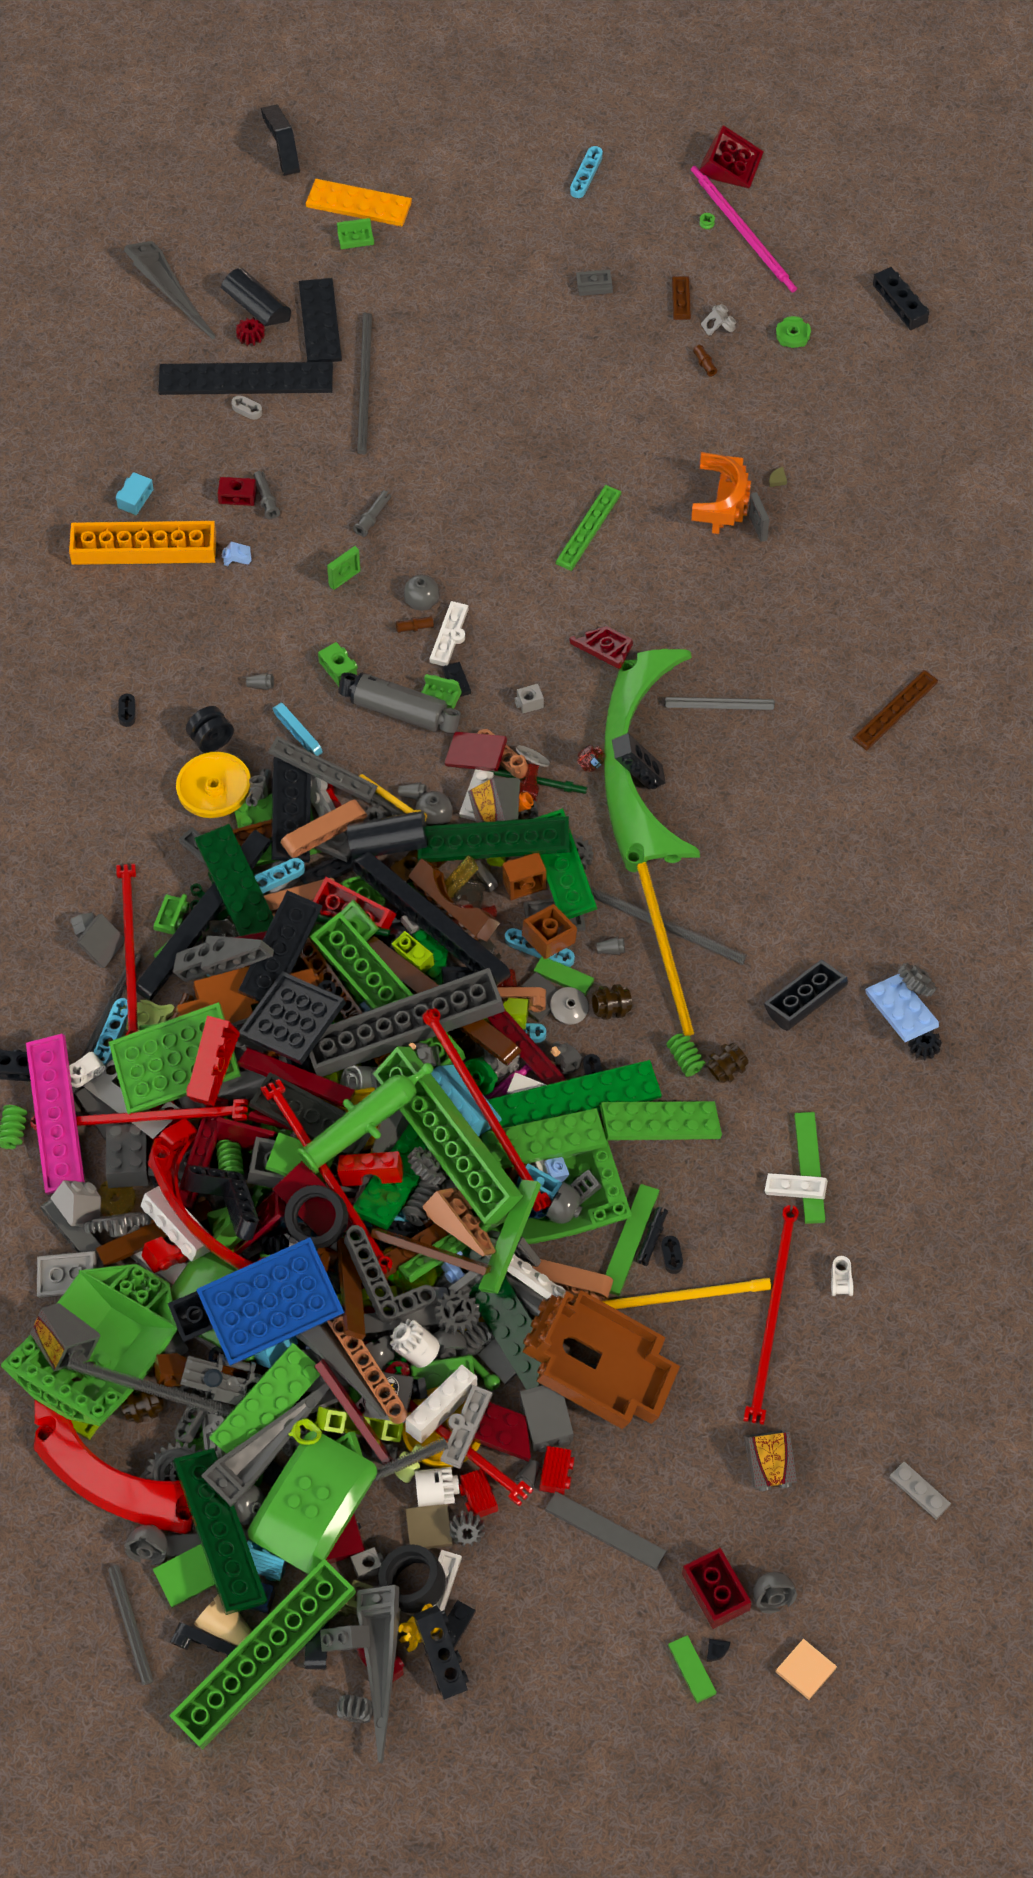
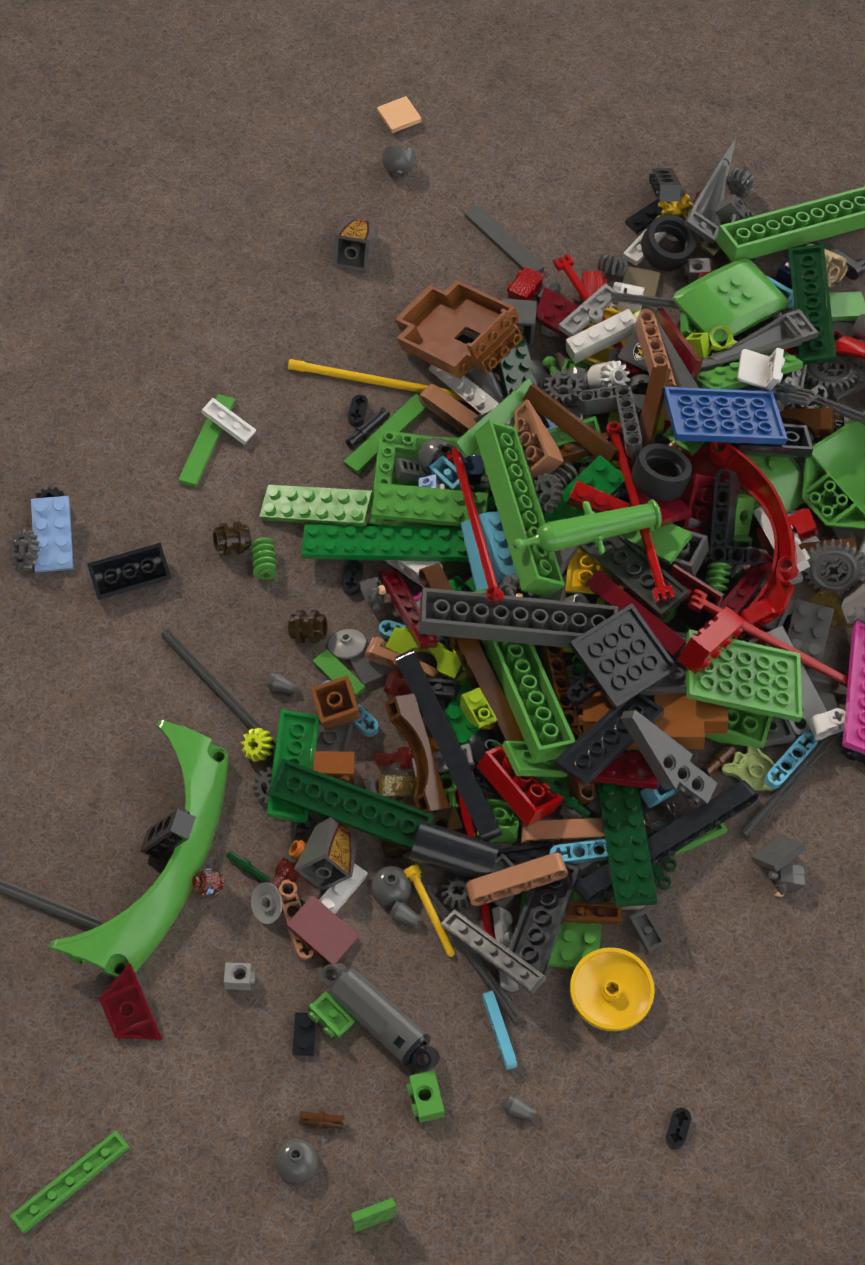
camera: 160 degrees left, 0 degrees up
(129, 945) = (752, 832): red hinge -> none
(171, 914) = (697, 863): bright green bracket -> none
(209, 729) = (596, 1053): black wheel -> none
(250, 1387) = (761, 369): none -> white bracket
(258, 787) = (560, 976): dark grey pin -> none
(449, 634) = (287, 1092): white hinge -> none
(605, 880) = (260, 737): none -> neon yellow gear
(665, 949) = (233, 662): yellow axle -> none
(692, 1669) = (480, 141): bright green tile -> none
(716, 1588) = (440, 173): dark red brick -> none
(717, 1649) = (456, 148): black tile -> none
(771, 1321) = (298, 342): red hinge -> none
(841, 1280) = (229, 348): white piece -> none
(920, 1490) = (253, 195): light grey plate -> none

